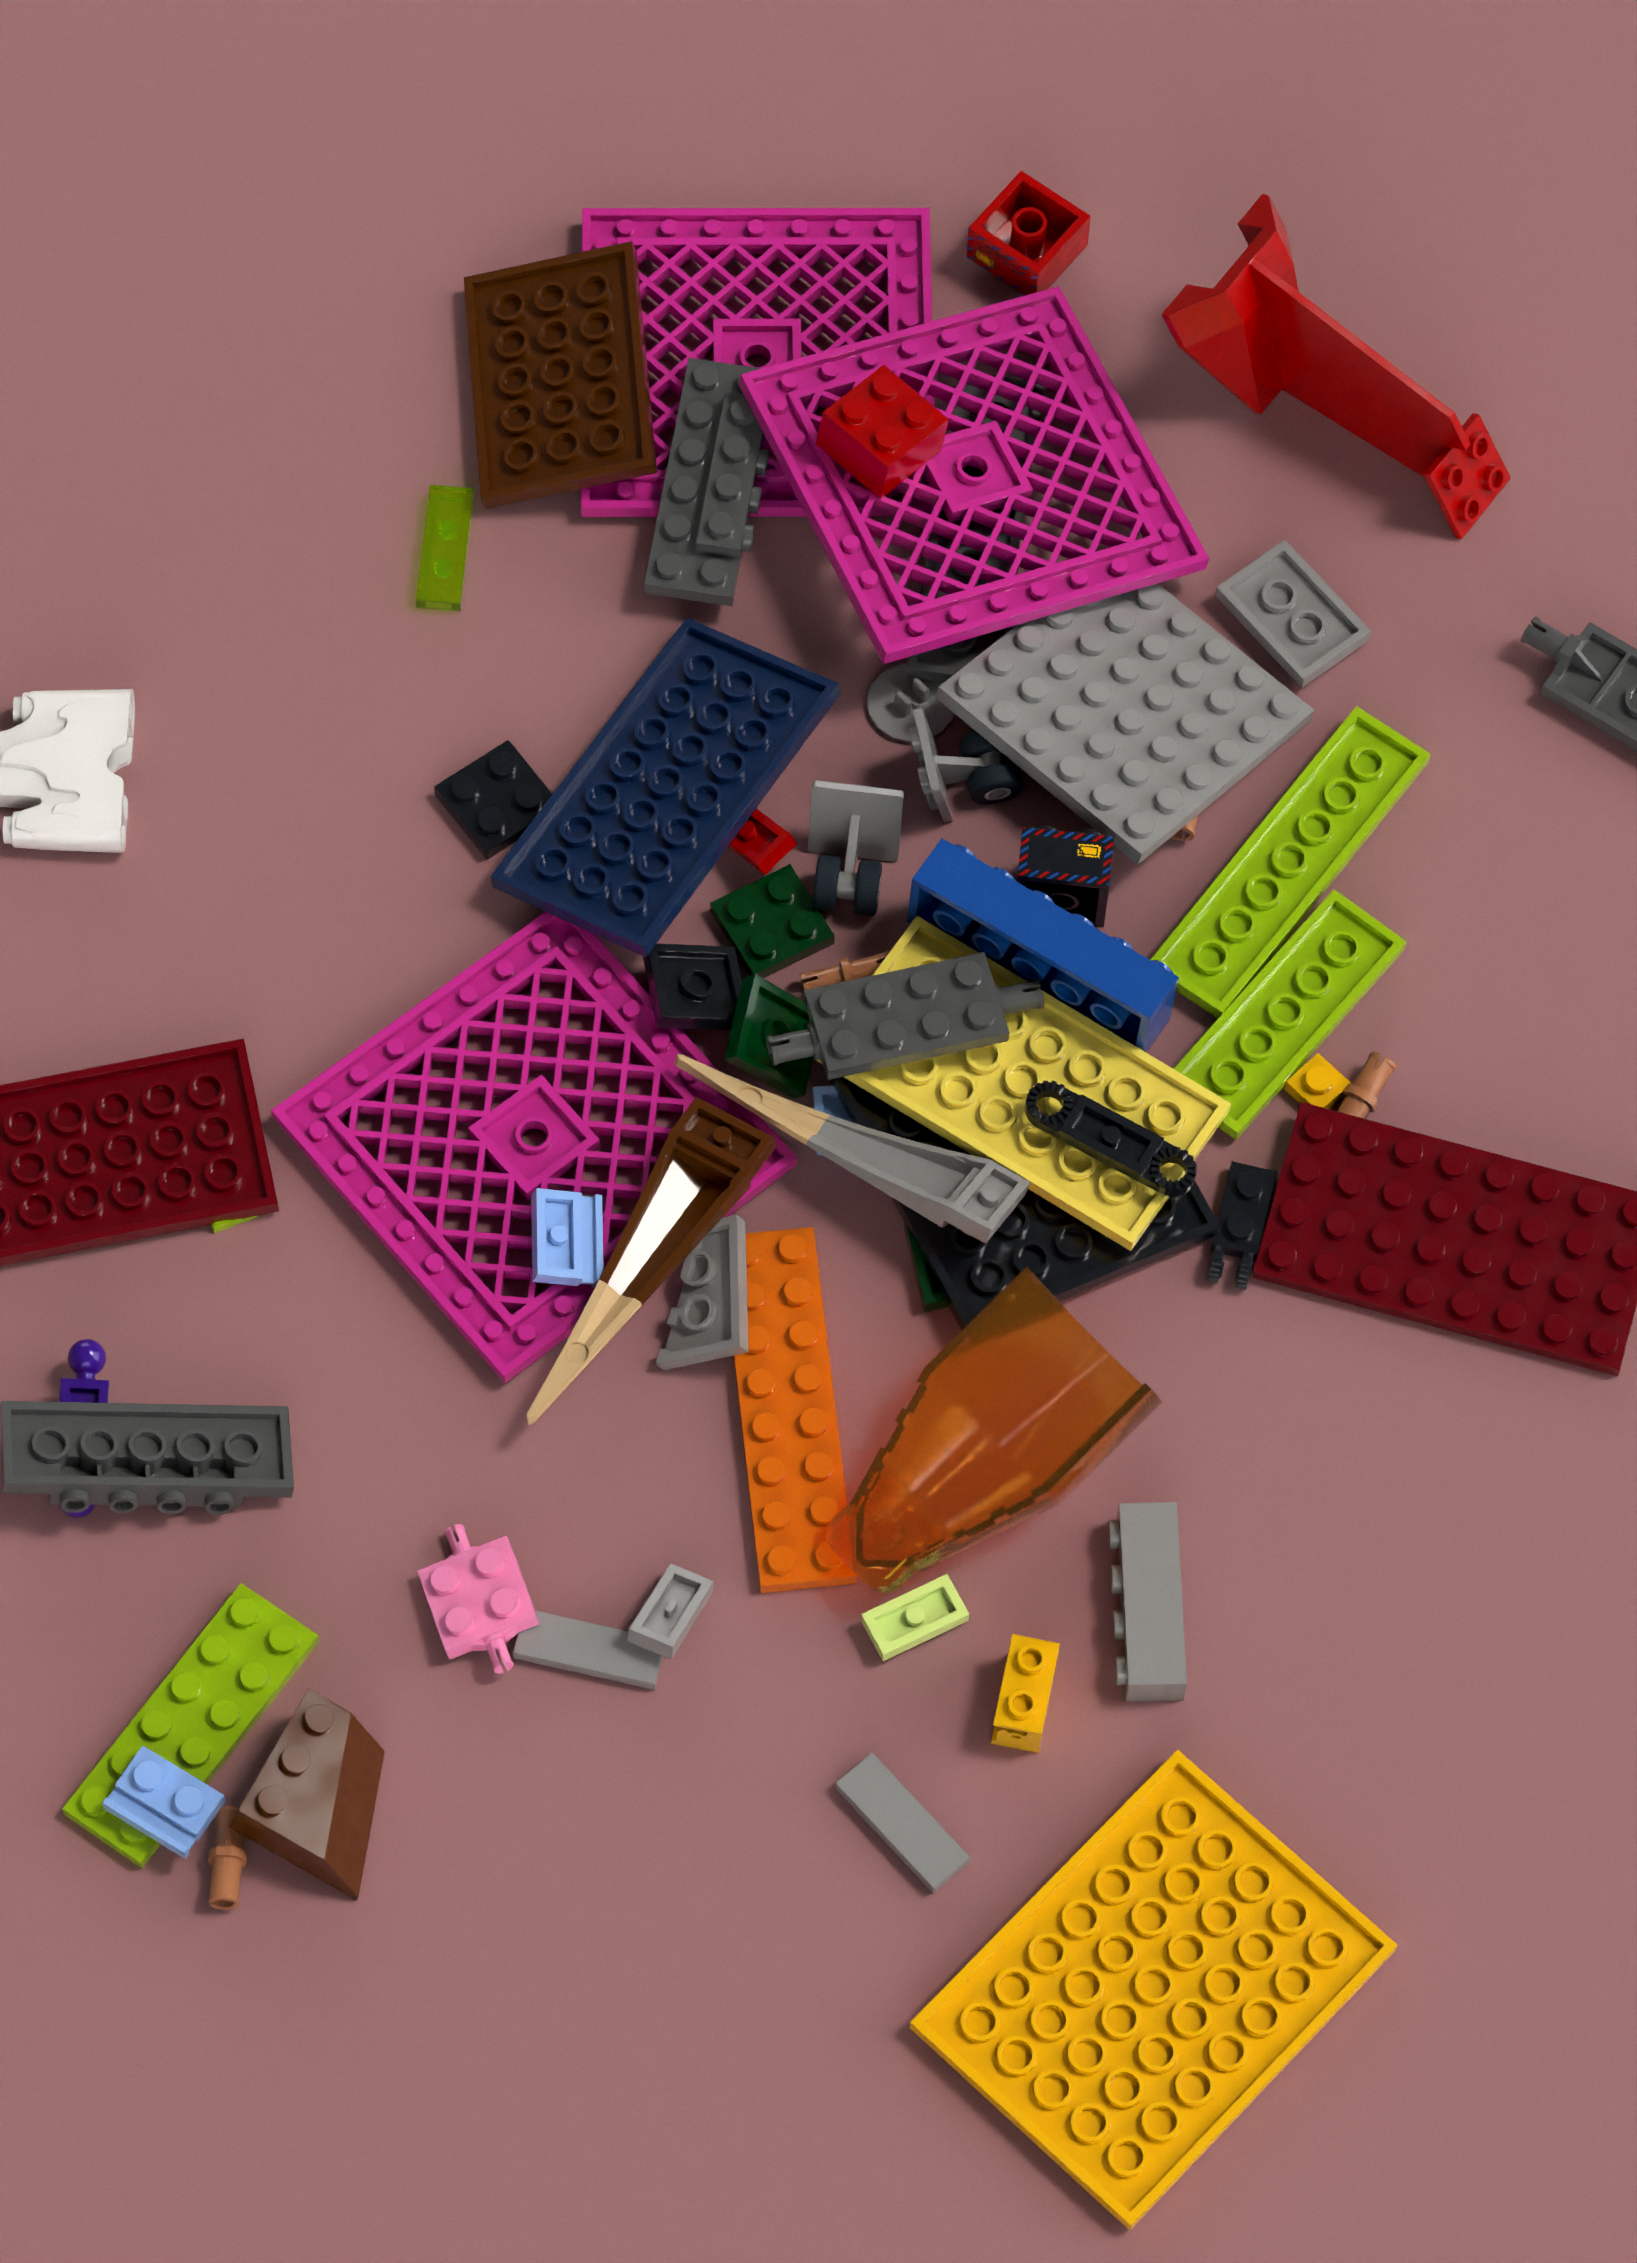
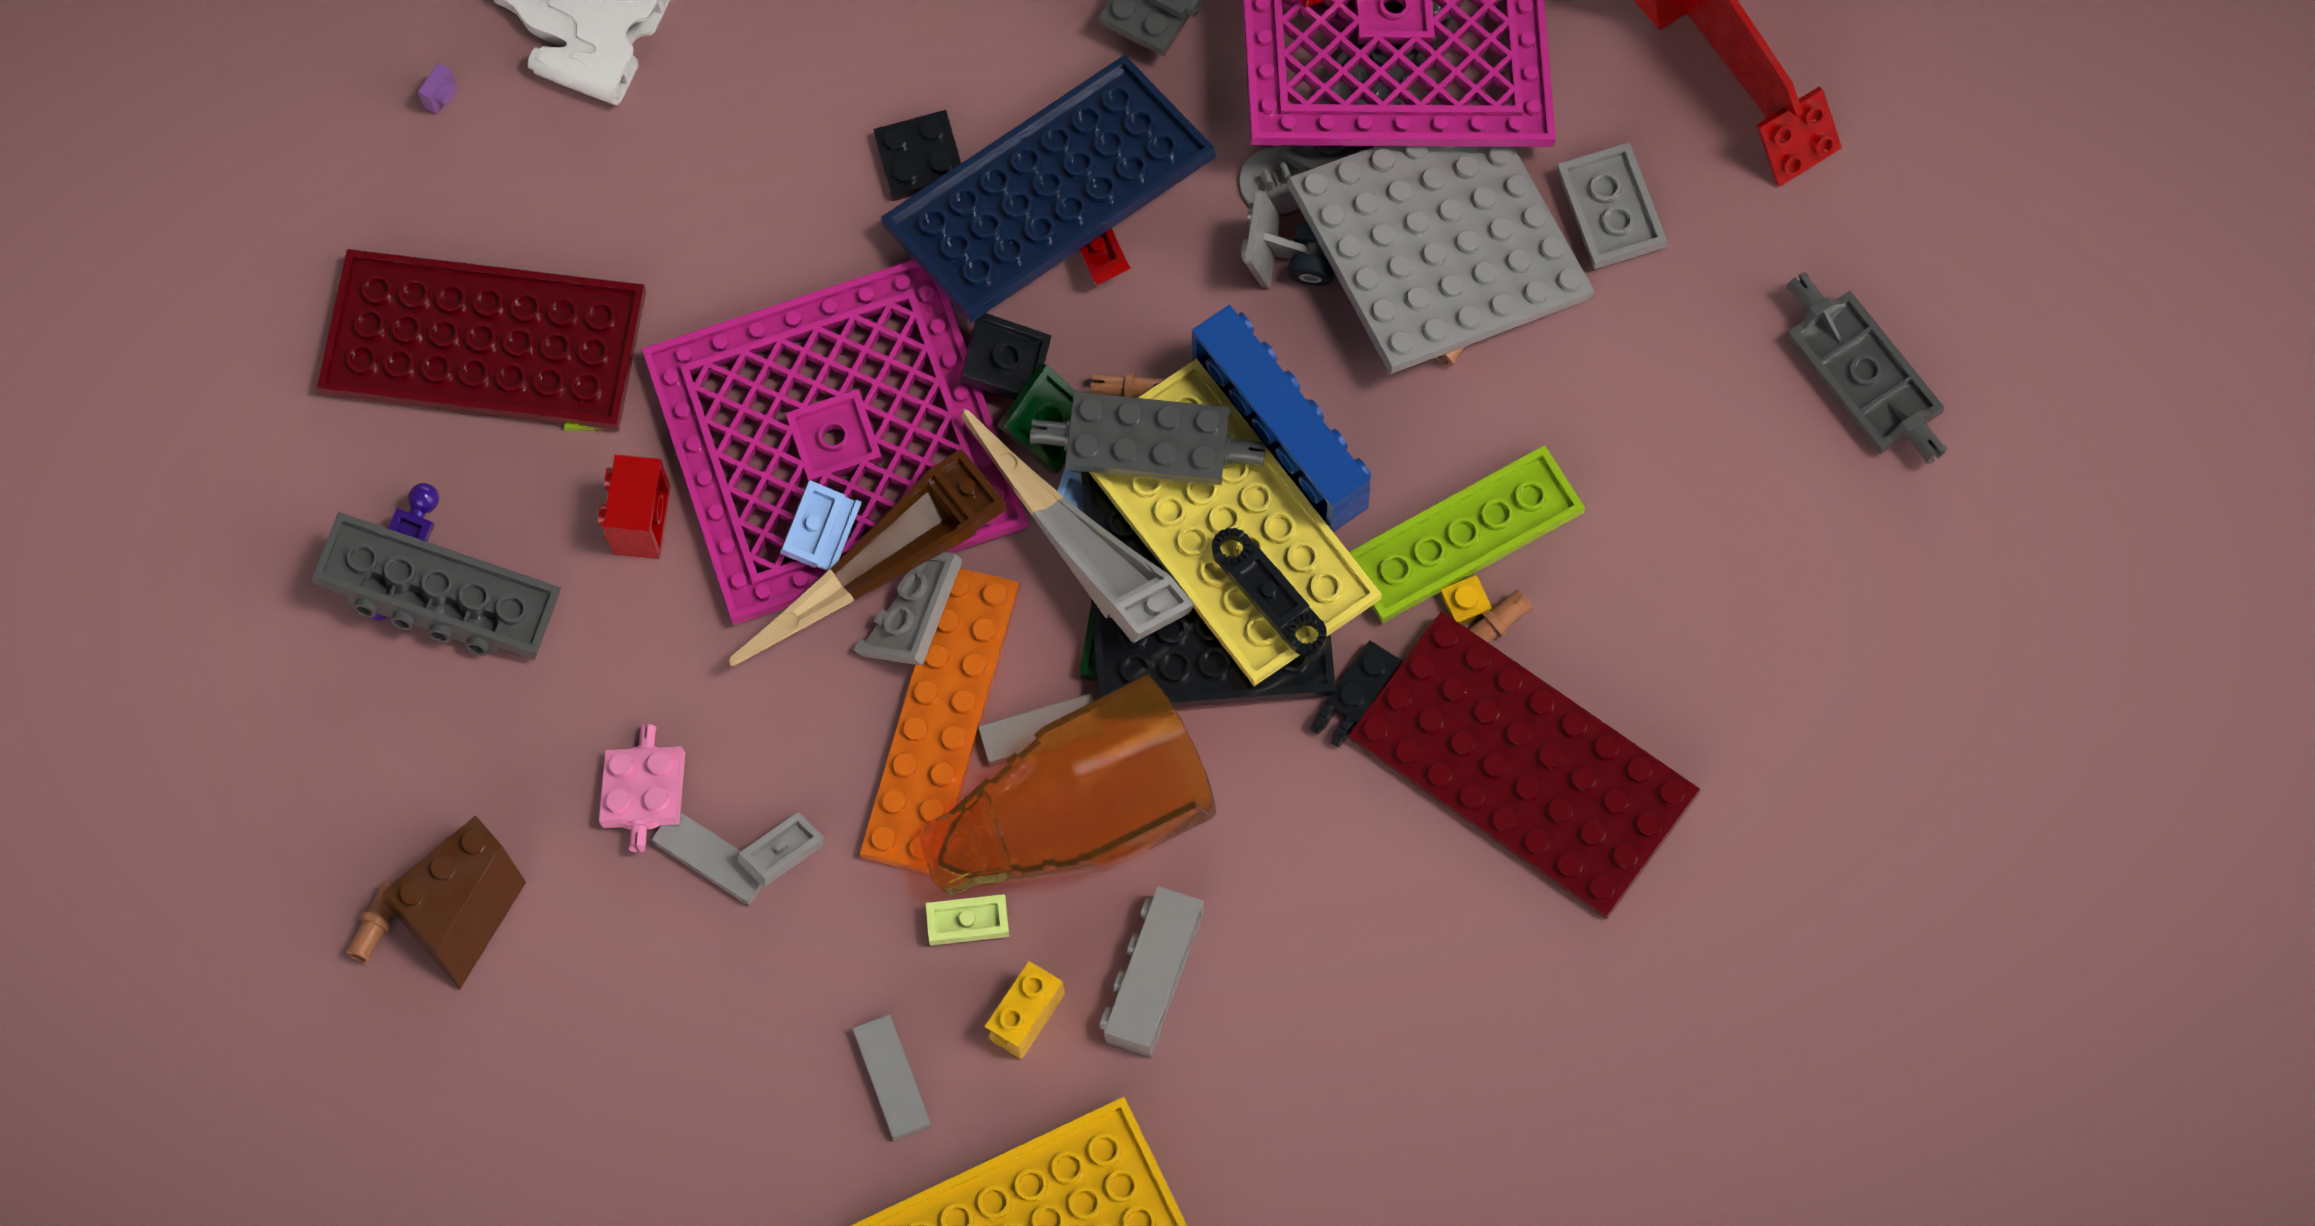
camera: 30 degrees right, 5 degrees up
(164, 1802) = (341, 864): light blue plate -> none
(199, 1709) = (391, 810): lime plate -> none
(341, 1285) = (635, 506): none -> red brick
(772, 922) = (1091, 325): dark green plate -> none
(852, 824) = (1184, 269): light grey plate -> none
(883, 1395) = (1017, 732): none -> light grey tile
(1068, 868) = (1330, 363): black brick -> none
(1290, 860) = (1521, 409): lime plate -> none

